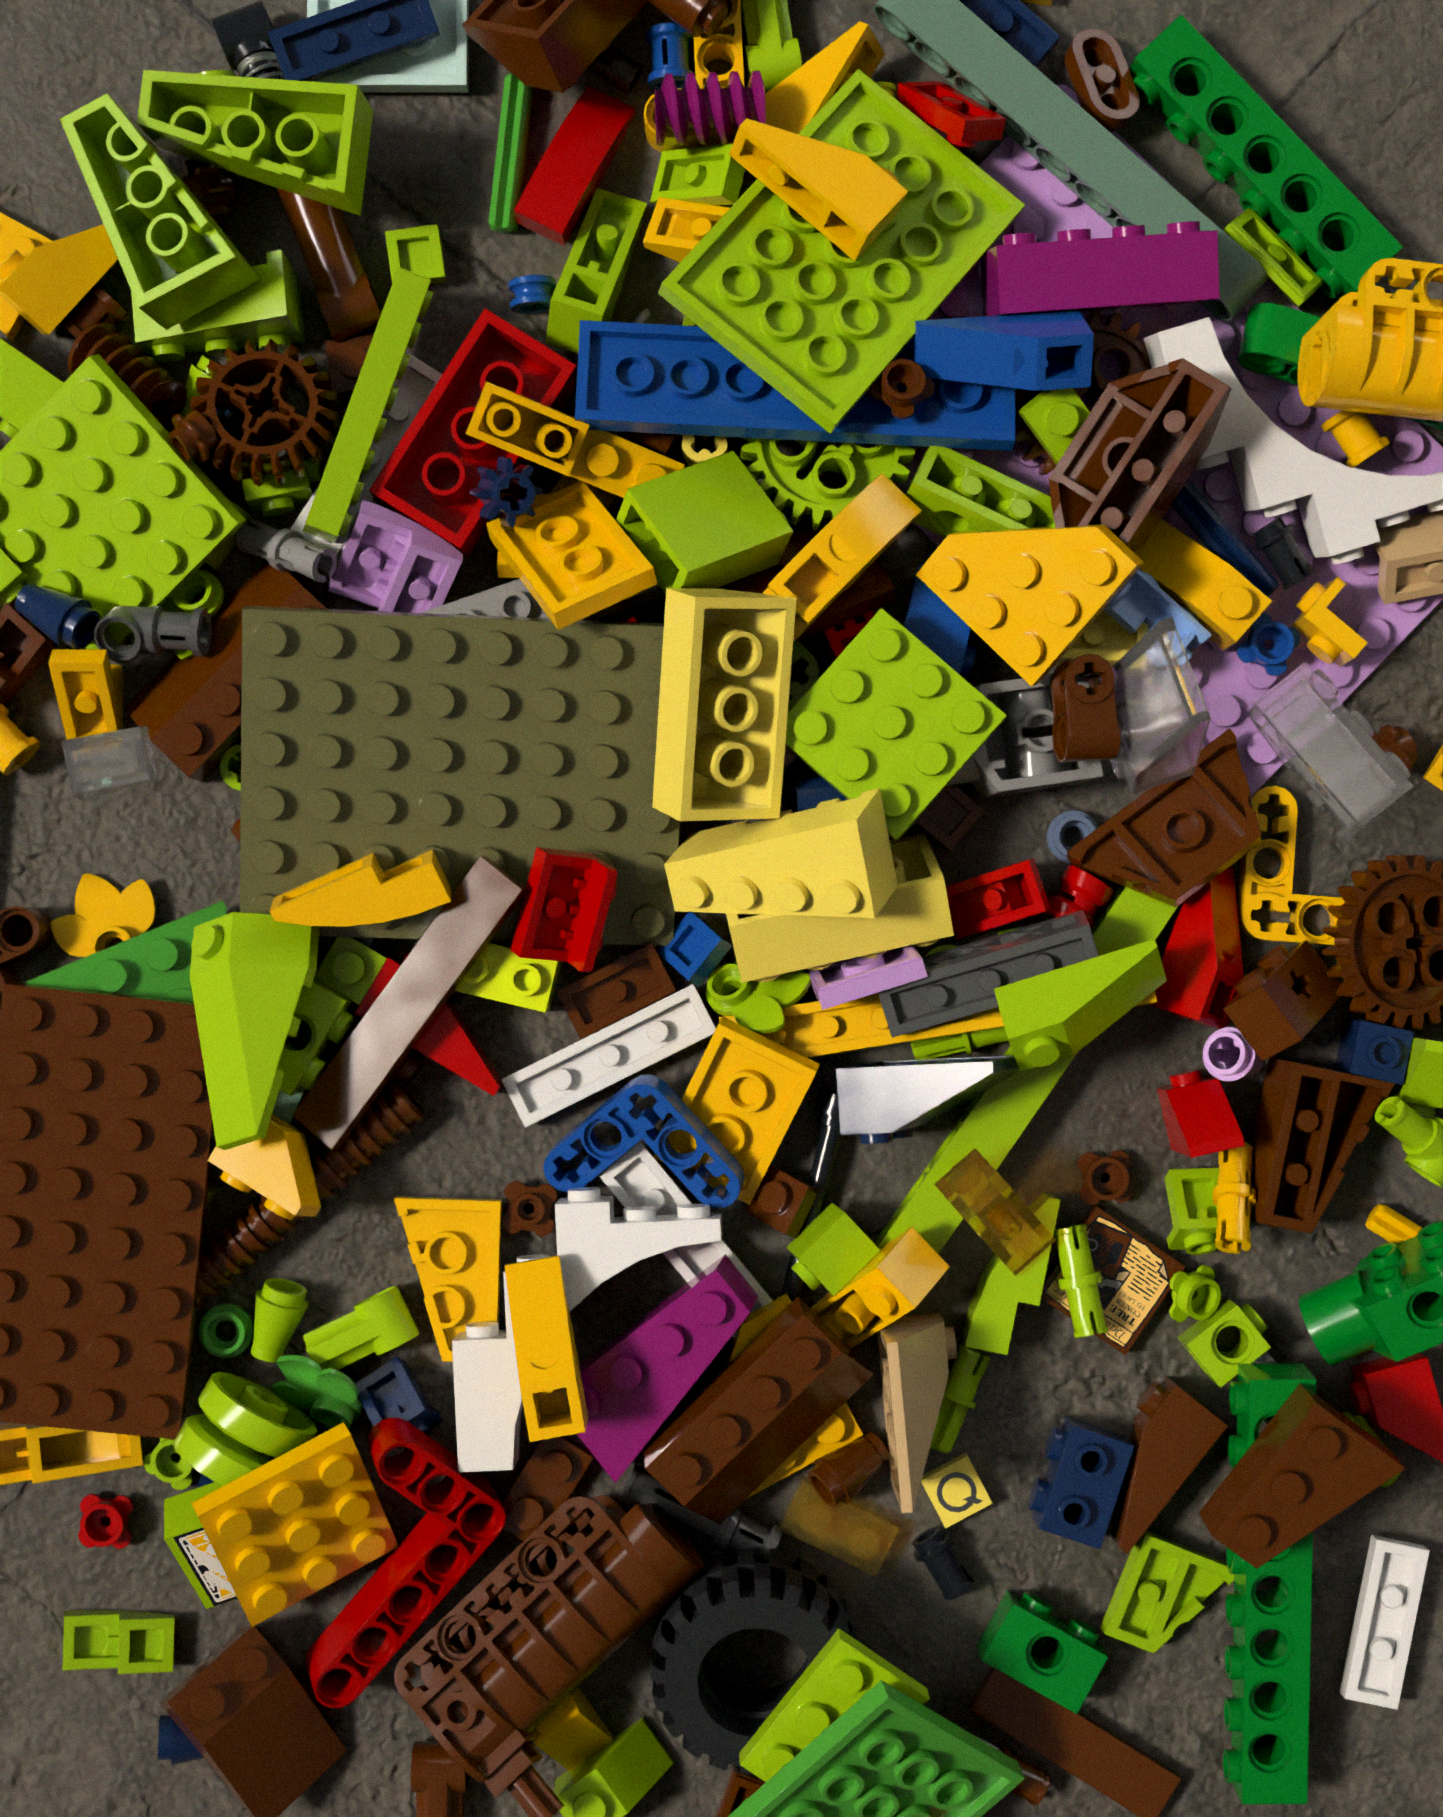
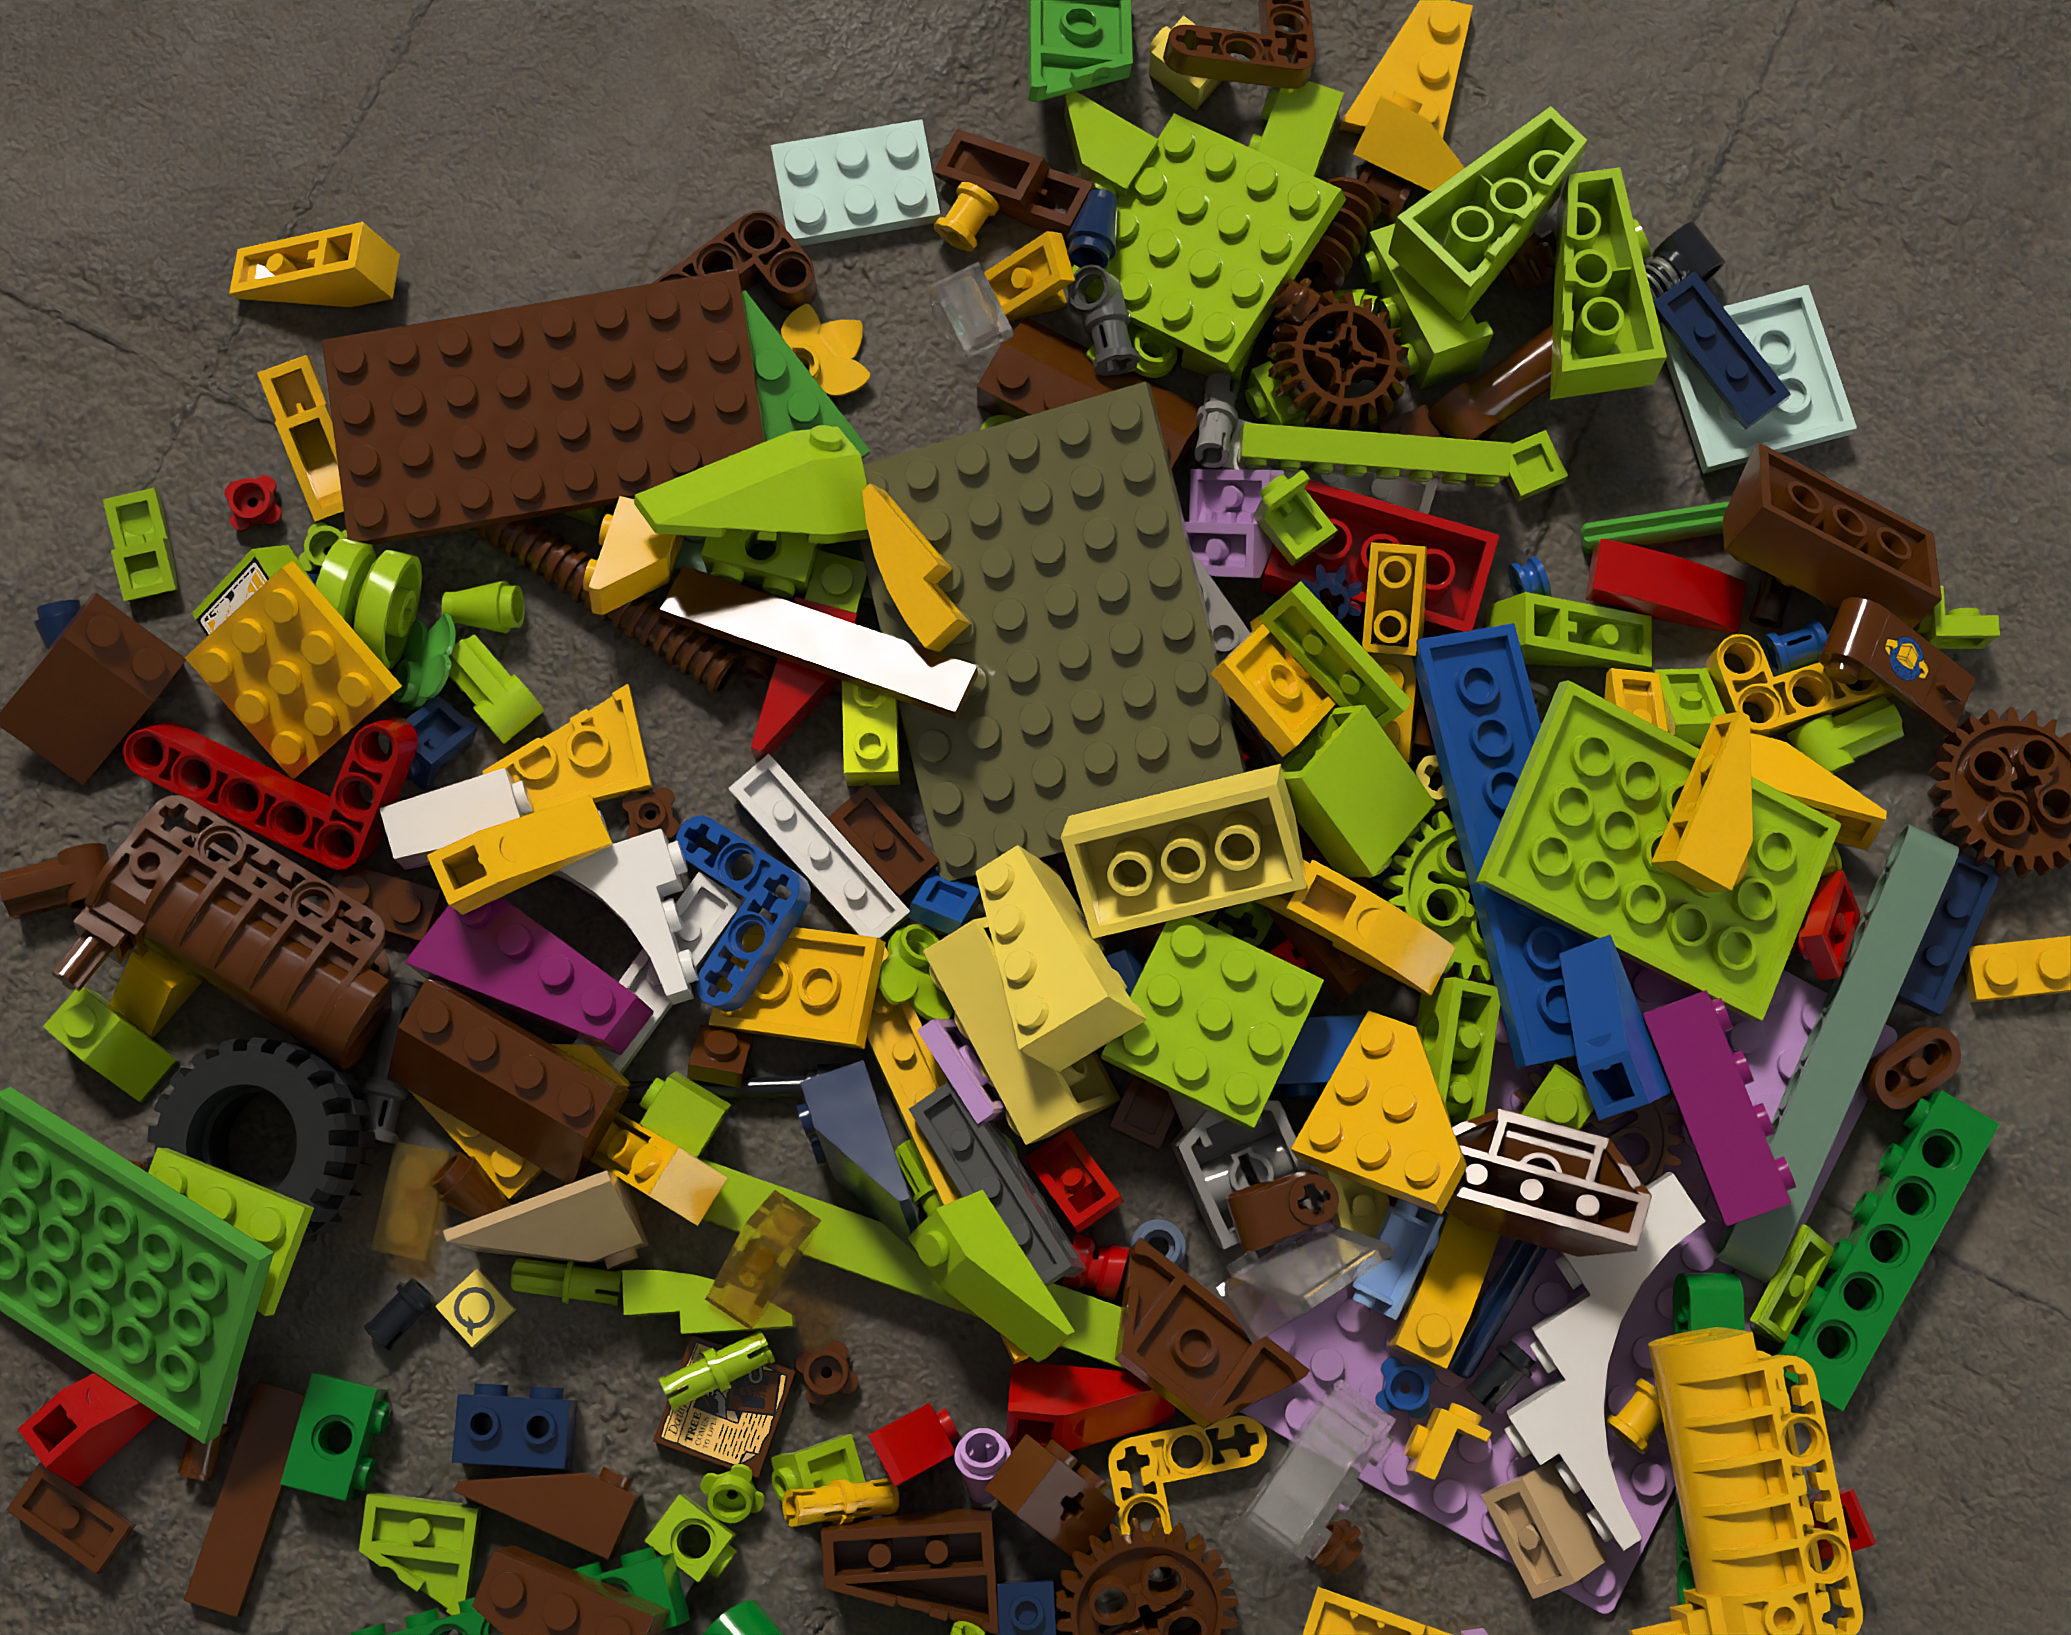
camera: 75 degrees right, 10 degrees down
(215, 1342) = (451, 554): bright green plate -> none
(416, 504) = (1292, 518): none -> lime bracket
(565, 908) = (949, 760): red bracket -> none
(568, 505) = (1333, 655): none -> lime plate
(707, 106) = (1753, 687): magenta piece -> none
(904, 373) = (1557, 938): reddish brown plate -> none

